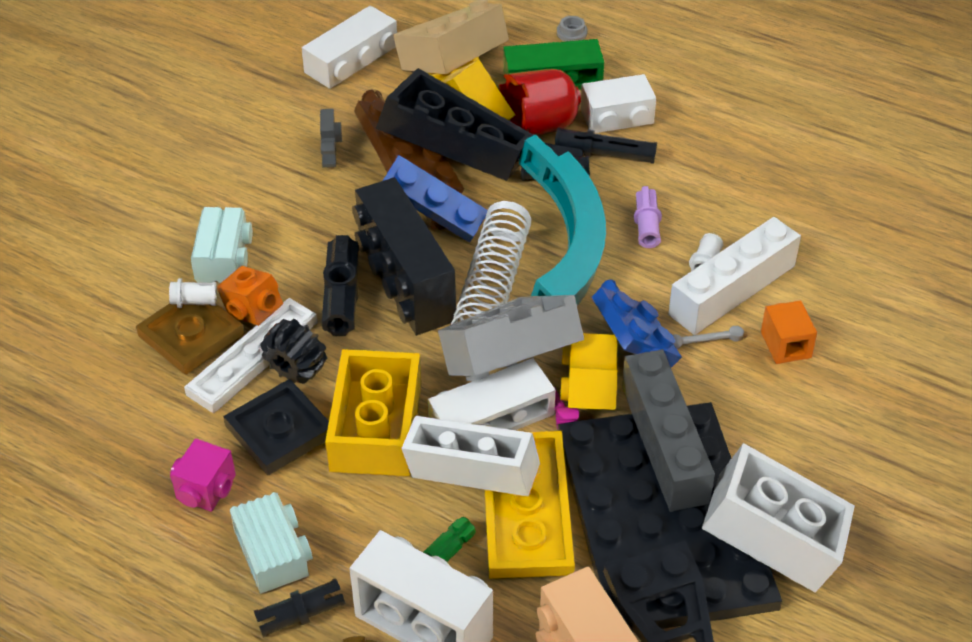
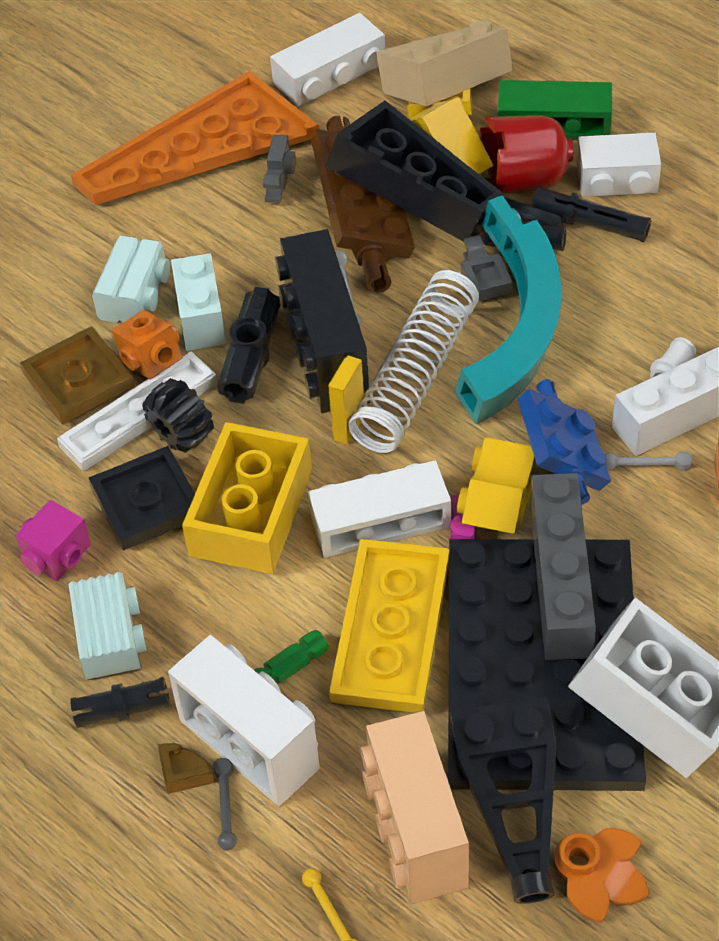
camera: 15 degrees right, 5 degrees up
(192, 293) = (84, 334): white pin -> none
(260, 116) = (208, 134): none -> orange wing
(287, 254) = (198, 302): none -> light aqua brick
(438, 199) = (375, 258): plate -> none
(441, 313) = (345, 395): none -> yellow tile
(471, 455) = (336, 564): white brick -> none
(510, 334) = (411, 430): light grey wedge -> none
(531, 198) = (485, 271): none -> dark grey plate
(572, 29) = (590, 65): light grey plate -> none
(647, 218) = (616, 308): lavender axle -> none

